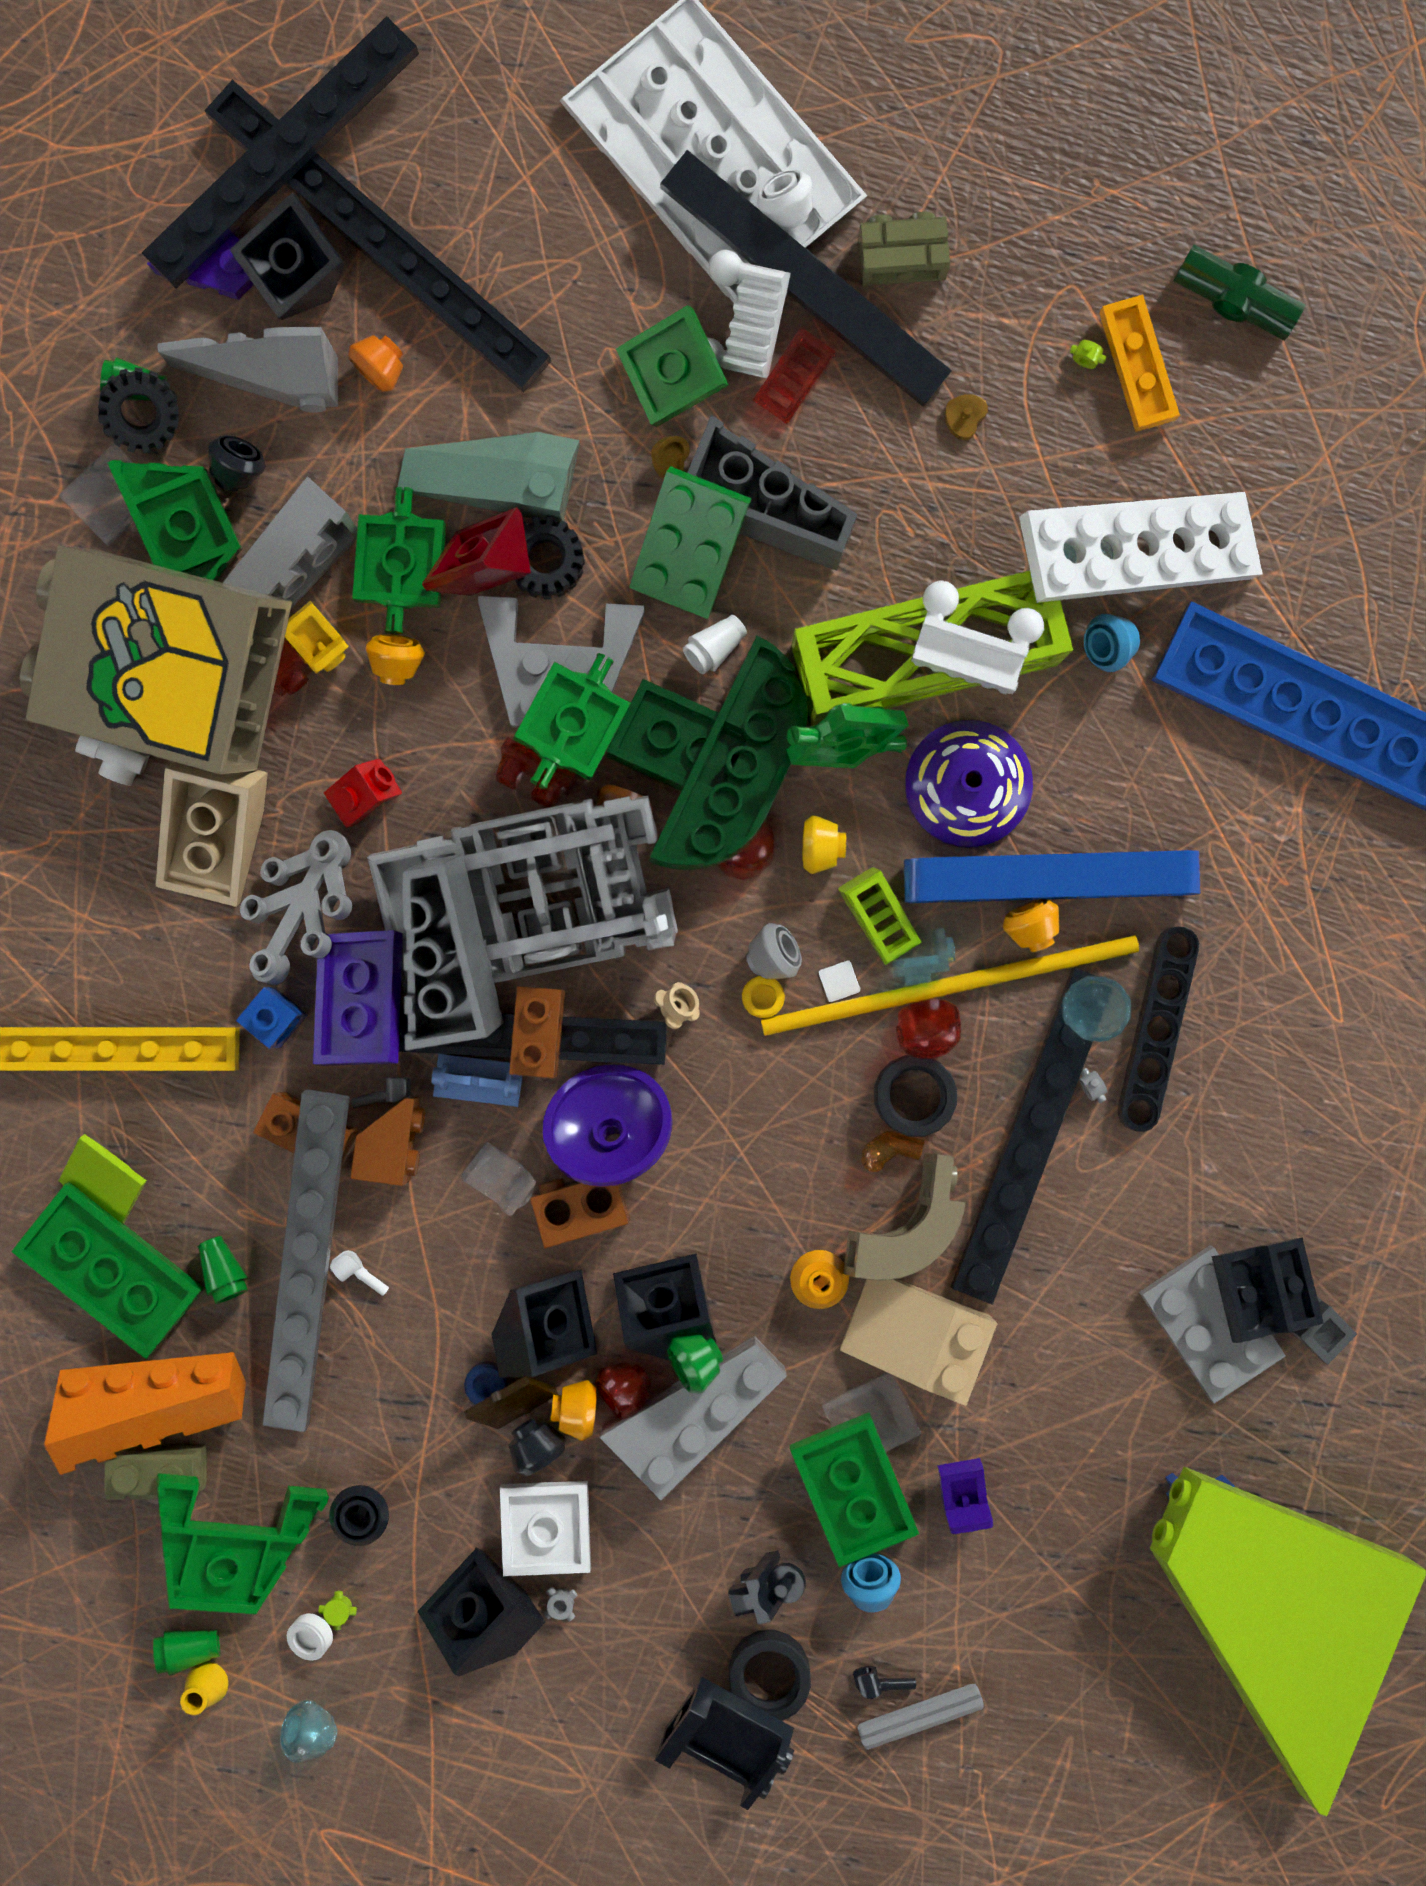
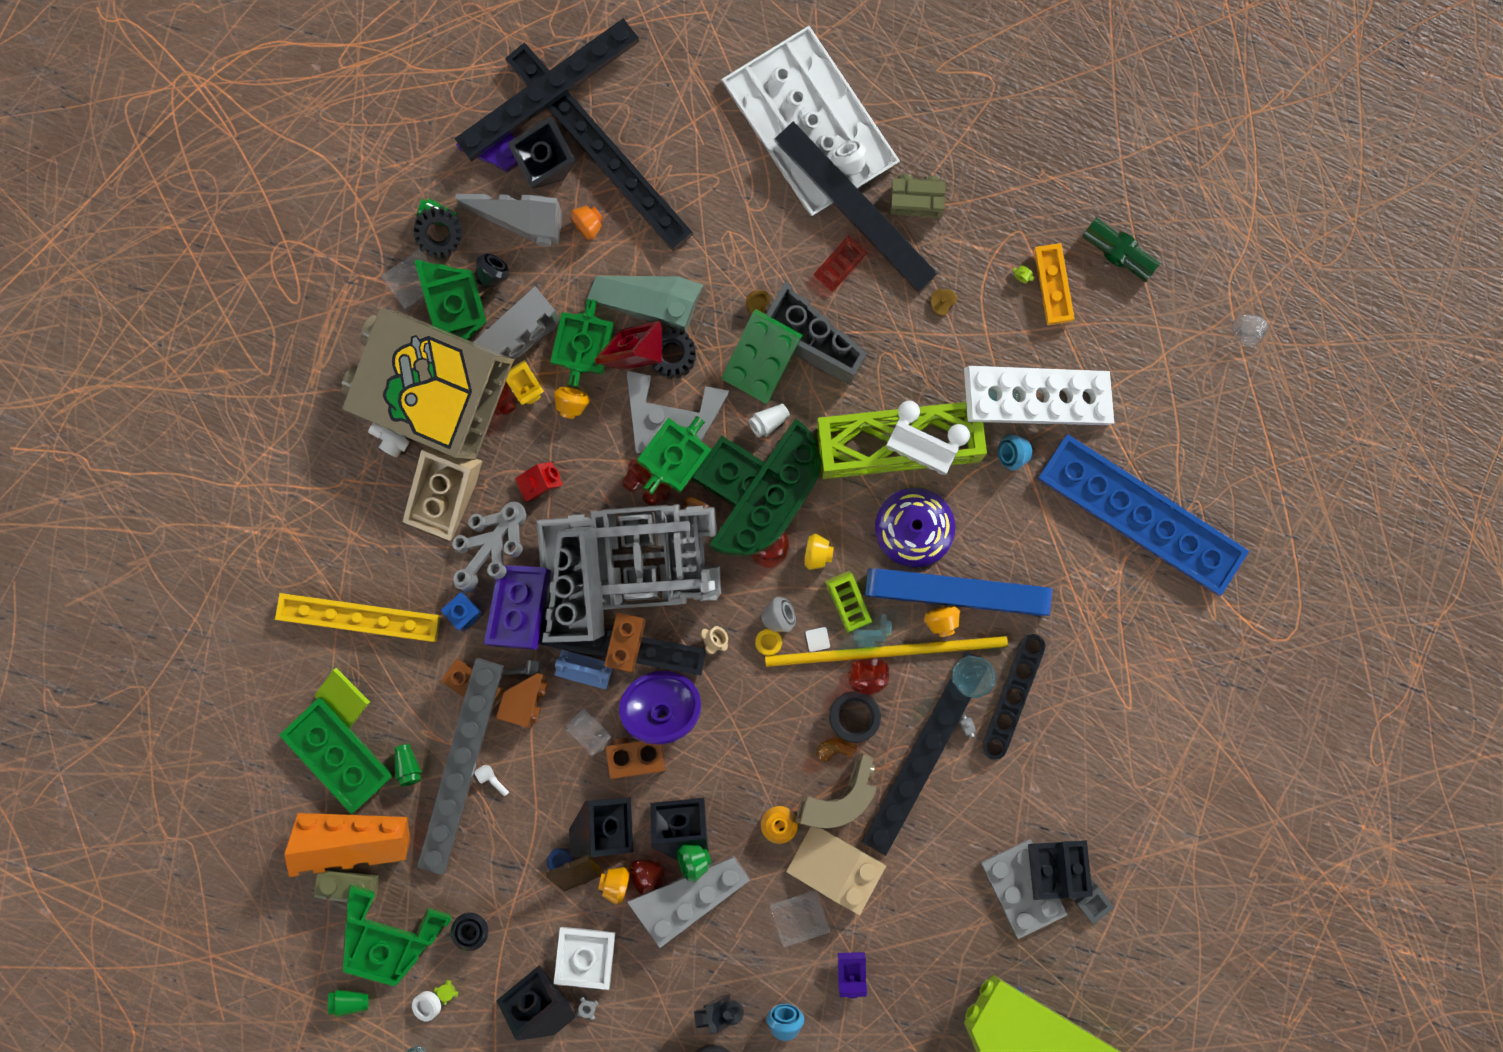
camera: 15 degrees right, 5 degrees down
(203, 1687) = (359, 1023): yellow cone -> none
(535, 1446) = (585, 904): black cone -> none
(672, 366) = (766, 248): green plate -> none
(756, 313) = (821, 225): white gear -> none
(848, 737) = (842, 488): green plate -> none
(854, 1489) = (782, 960): green plate -> none

